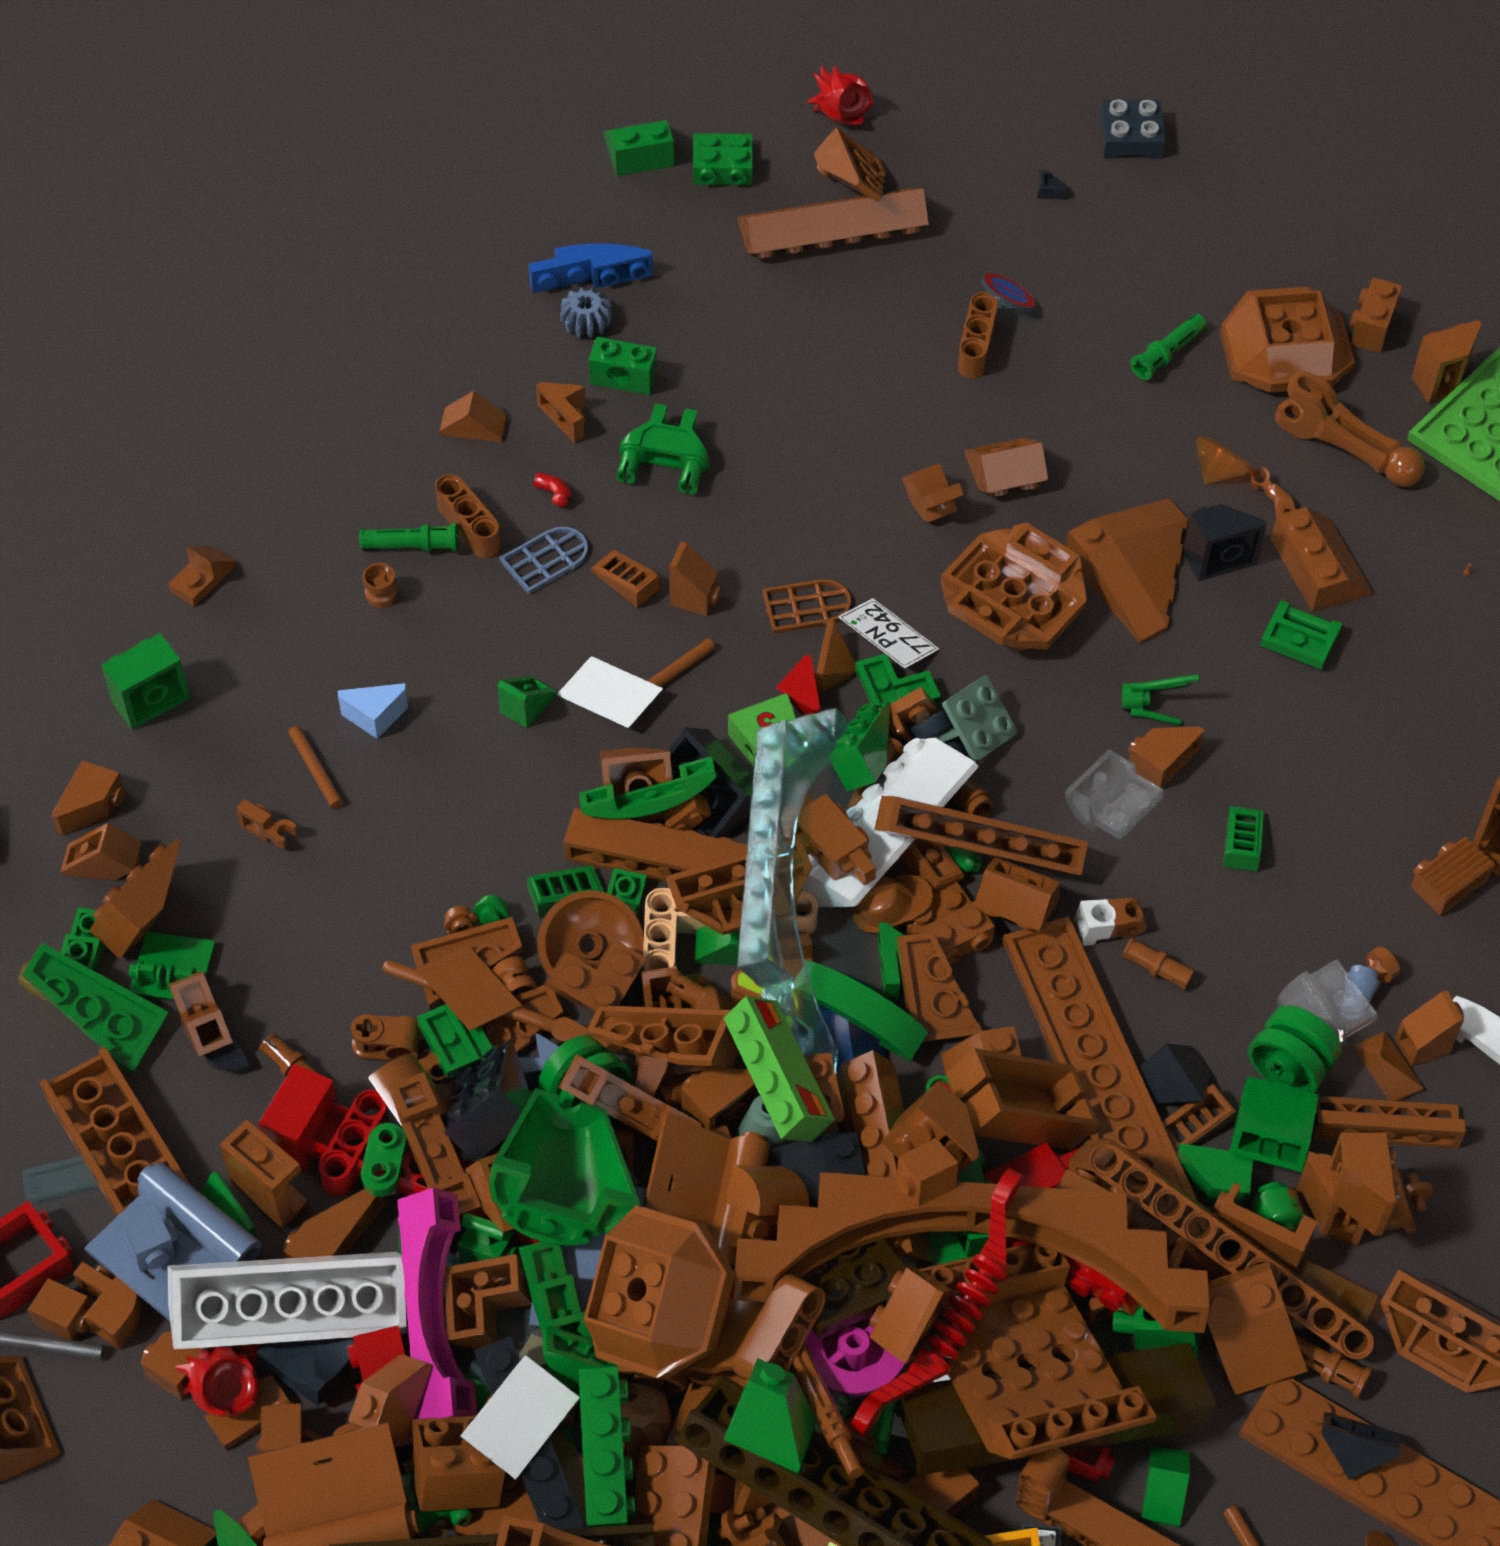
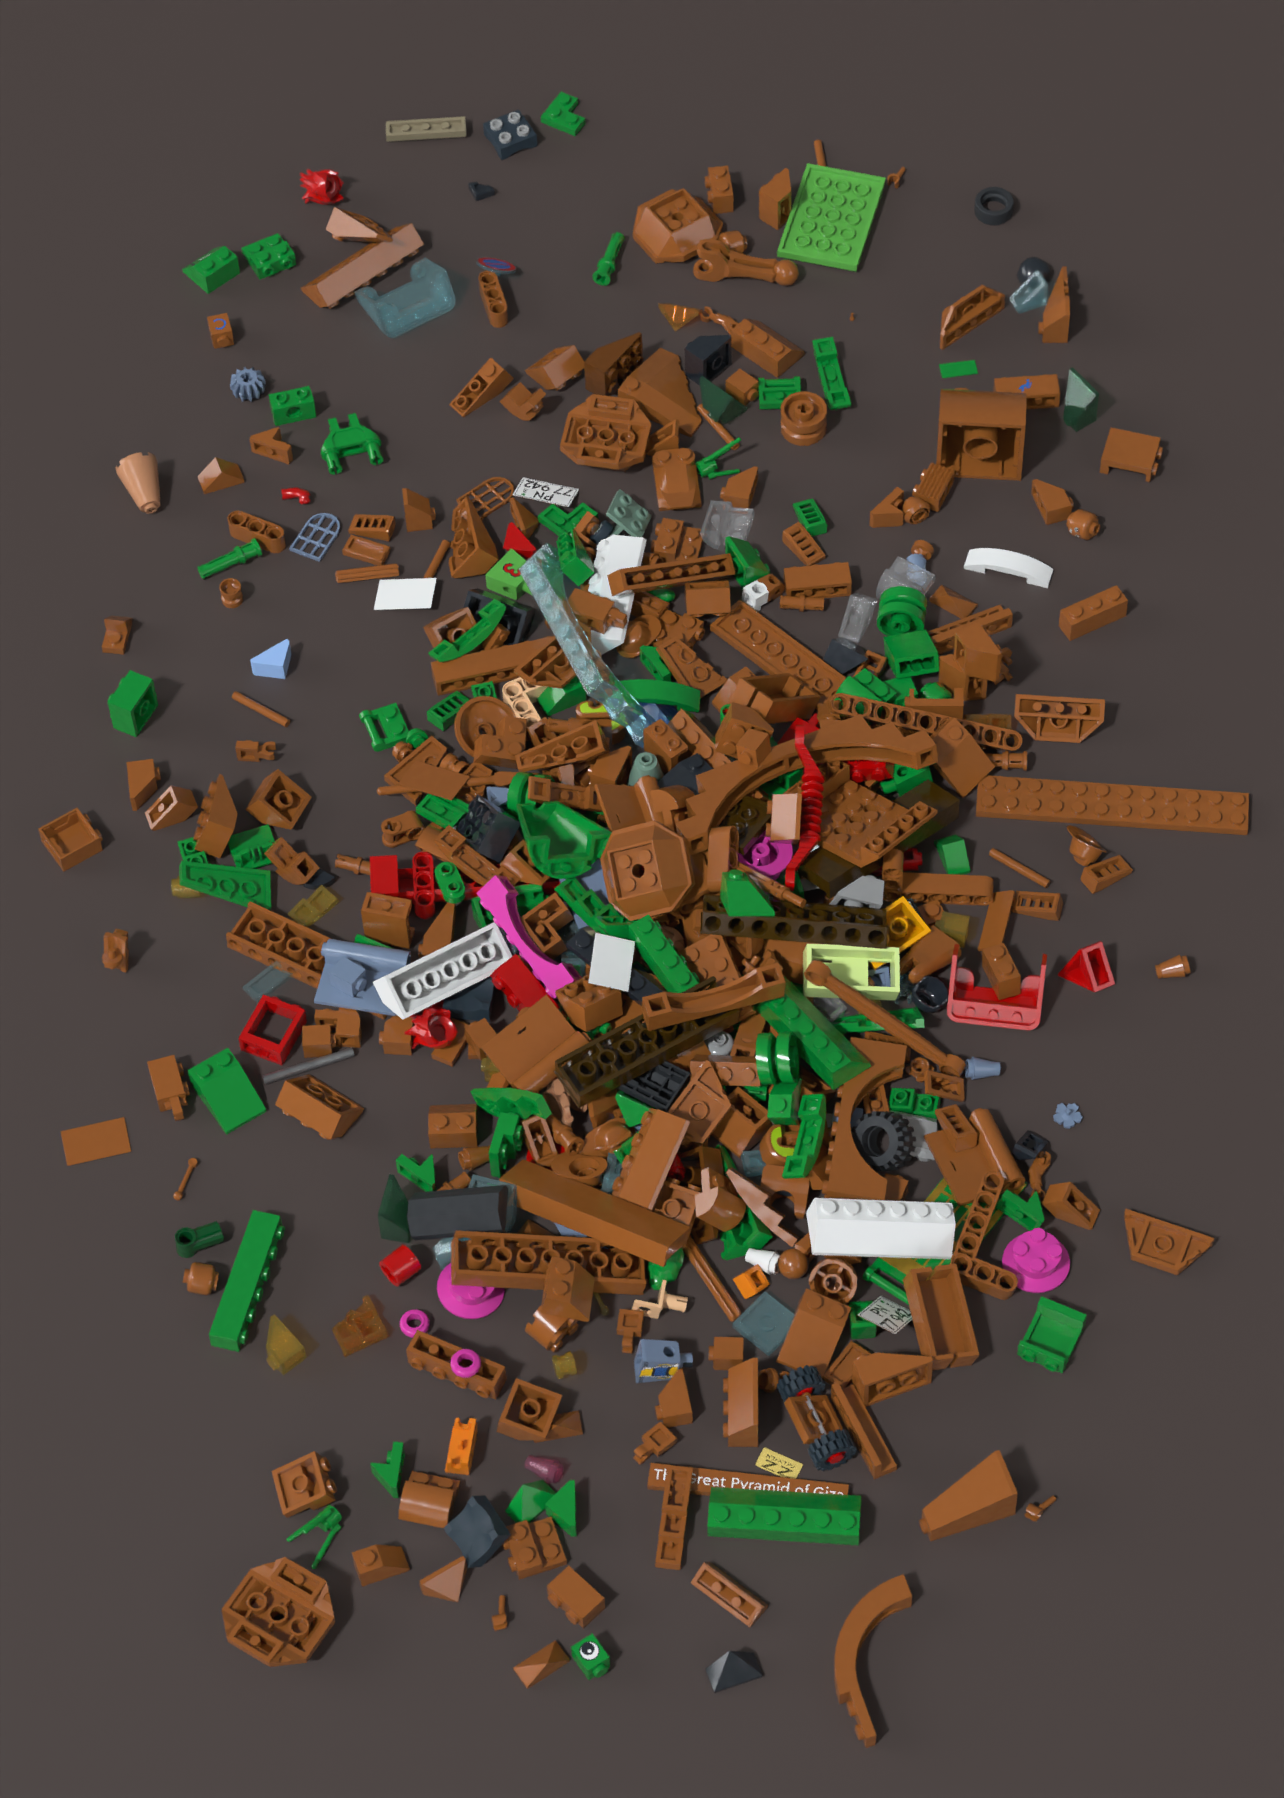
camera: 25 degrees left, 0 degrees up
(192, 1099) = (314, 908): none -> clear yellow slope
(244, 915) = (278, 801): none -> dark orange slope
(364, 381) = (141, 480): none -> nougat cone
(392, 1395) = (534, 985): dark orange slope -> none
(473, 876) = (391, 723): none -> green plate
(524, 698) = (358, 619): green slope -> none
(578, 639) = (367, 573): none -> dark orange axle
(596, 224) = (220, 330): none -> dark orange brick
(596, 262) = (235, 351): blue slope -> none
(597, 606) = (366, 550): none -> dark orange tile
(741, 662) = (472, 545): none -> dark orange wedge
(778, 1069) = (640, 736): bright green brick -> none
(864, 296) = (411, 304): none -> clear light blue windscreen
(890, 449) = (481, 388): none -> dark orange slope
(969, 1496) = (863, 892): none -> light grey slope
(1025, 78) = (425, 129): none -> dark tan plate
(1028, 789) = (676, 541): none -> dark orange plate
(1082, 491) = (613, 364): none -> reddish brown slope
(1082, 696) = (676, 479): none -> dark orange slope
(1097, 633) = (664, 438): none -> dark orange slope
(1108, 862) = (745, 561): none -> green slope
(1171, 1150) = (867, 686): none -> green brick
(1185, 643) = (718, 427): none -> dark orange piece
(1200, 941) = (818, 580): none -> dark orange brick
(1204, 610) = (719, 403): none -> clear green slope
(1209, 854) = (796, 533): none -> dark orange slope
(1216, 131) = (560, 114): none -> green plate
(1228, 1023) = (857, 617): none -> clear slope
(1250, 603) = (742, 387): none -> dark orange brick
(1312, 687) = (803, 418): none -> dark orange wheel
(1353, 393) = (734, 241): none -> dark orange head
(1358, 1445) = (1040, 789): black slope -> none
(1361, 881) = (888, 511): none -> dark orange slope
(1390, 639) = (830, 374): none -> green slope
(1405, 898) = (915, 510): none -> dark orange cone
(1430, 1030) = (966, 571): dark orange slope -> none

